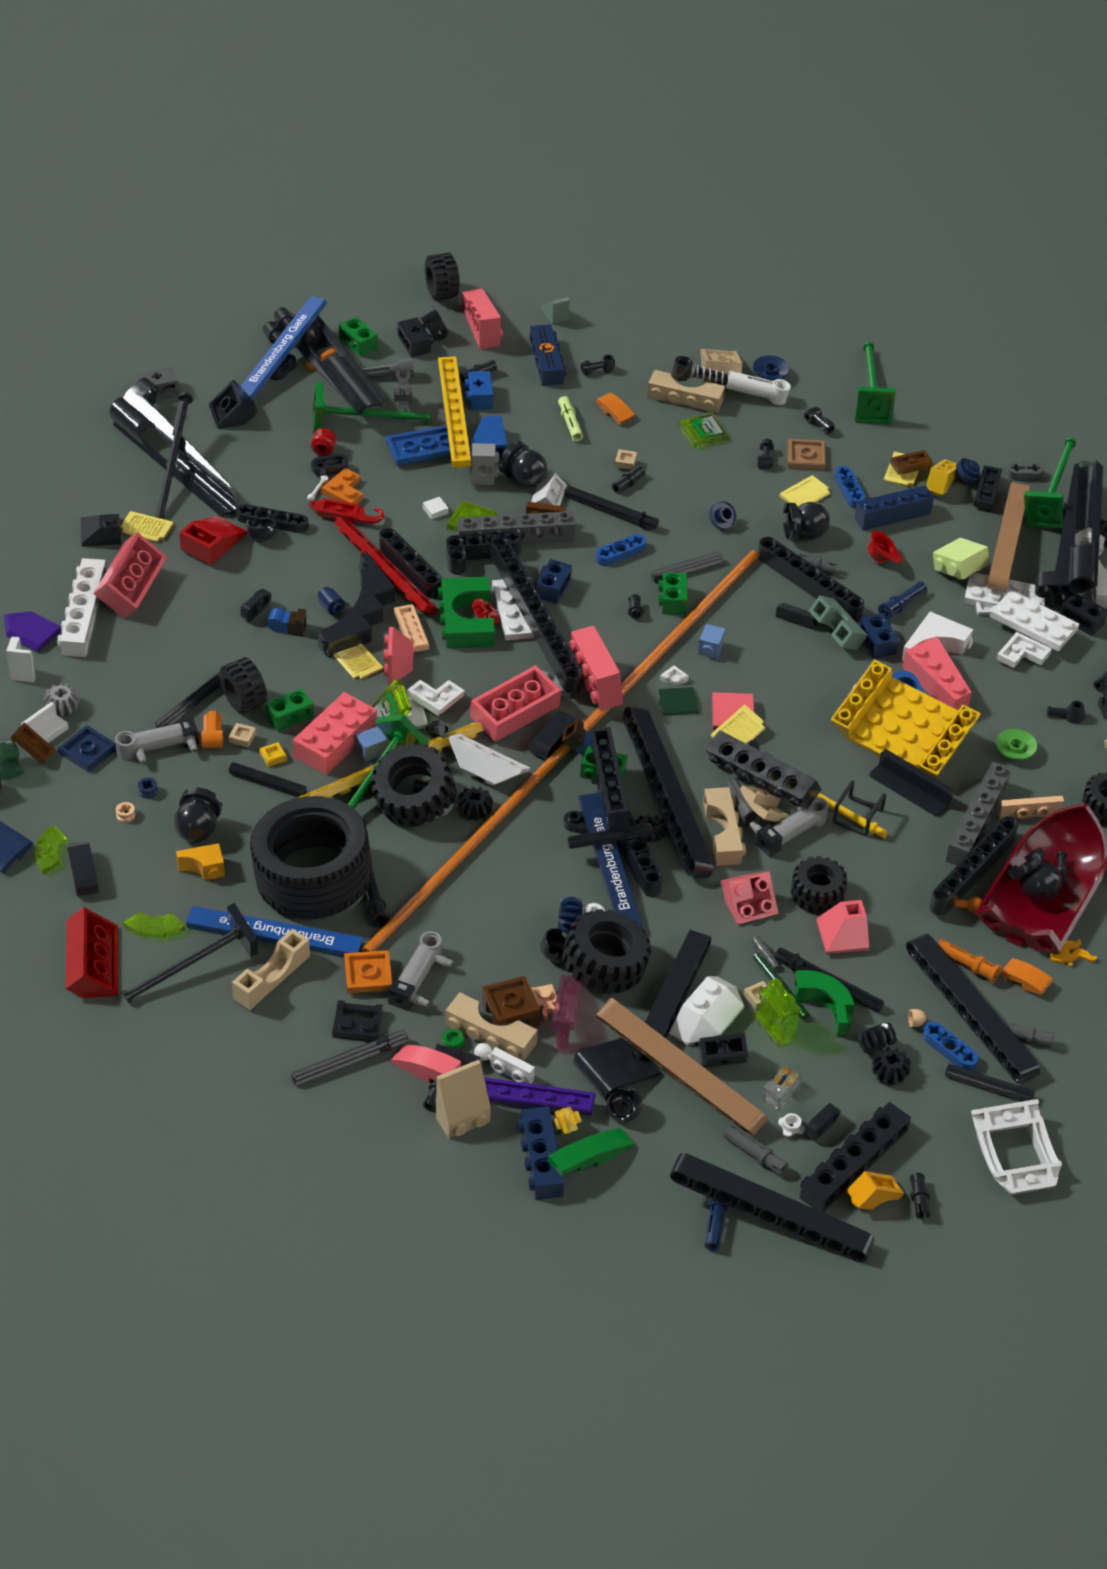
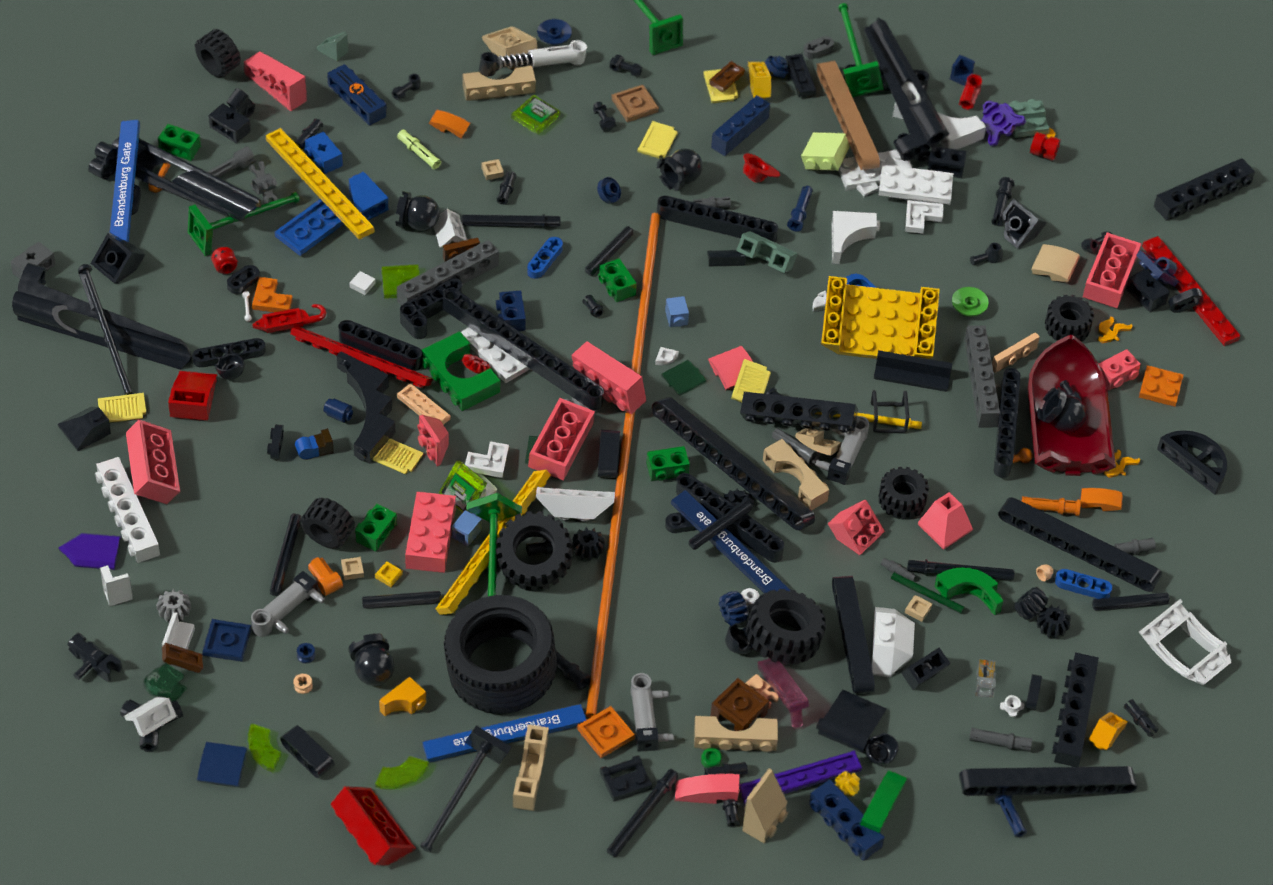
camera: 30 degrees left, 5 degrees up
(438, 728) = (509, 489): black bar -> none
(483, 464) = (384, 224): light grey brick -> none
(506, 1063) = (768, 758): white plate -> none
(577, 737) = (636, 448): dark brown leg -> none
(609, 779) = (694, 476): black brick -> none
(682, 1067) = (905, 697): medium nougat beam -> none
(777, 1013) = (949, 614): clear neon green hips -> none
(848, 493) = (697, 127): blue beam -> none
(881, 638) = (809, 251): dark blue brick -> none
(937, 673) = (877, 266): coral wedge -> none

